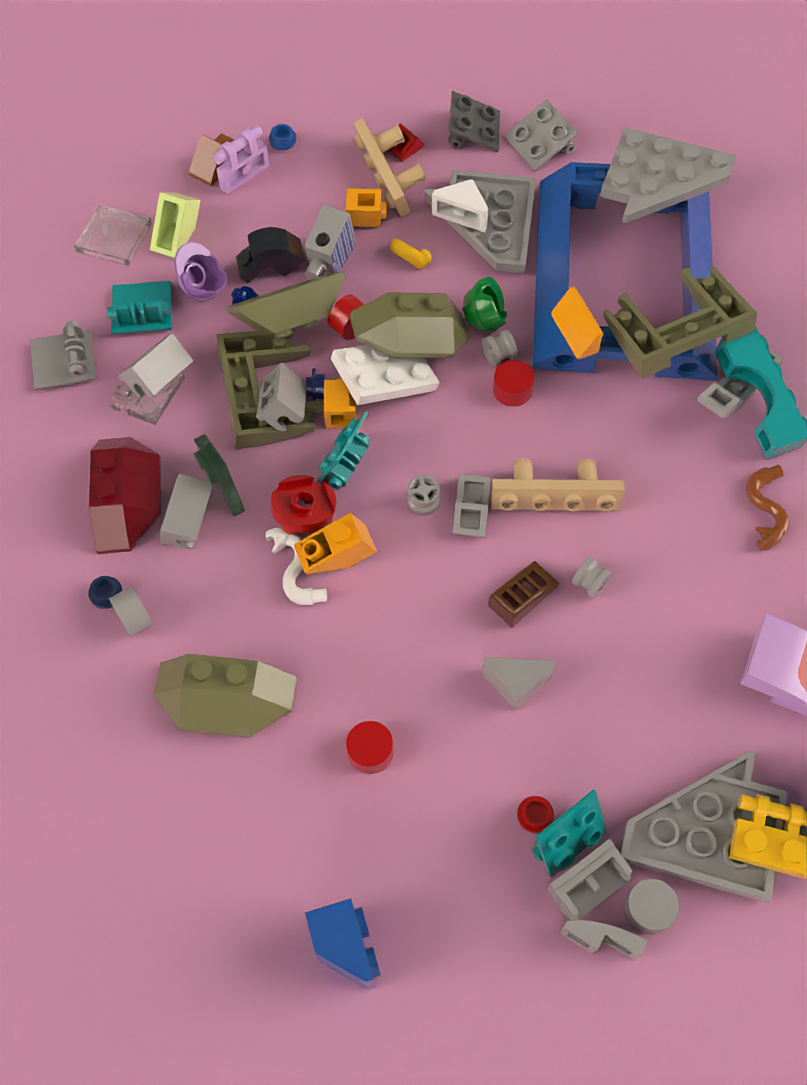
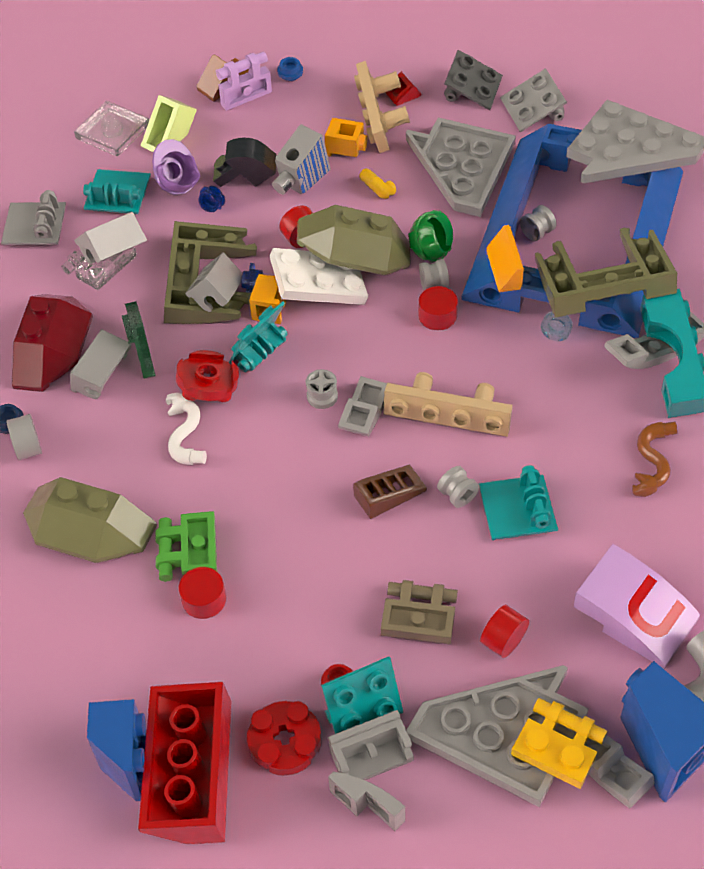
camera: 15 degrees right, 10 degrees down
(290, 306) = (245, 206): olive wedge -> none
(335, 546) = (226, 415): light orange slope -> none
(348, 693) = (197, 544): none -> bright green plate
(414, 944) = (186, 763): none -> red slope
(461, 205) = (432, 146): white slope -> none
(493, 908) = (288, 717): none -> red plate
(517, 678) = (360, 559): light grey slope -> none
(586, 271) = (538, 223): none -> light grey wheel
(597, 730) = (418, 619): none -> dark tan plate
(634, 385) = (556, 328): none -> clear light blue tile
(651, 906) = (423, 783): light grey piece -> none
(654, 585) = (518, 505): none -> teal hinge
(684, 726) = (504, 631): none -> red piece

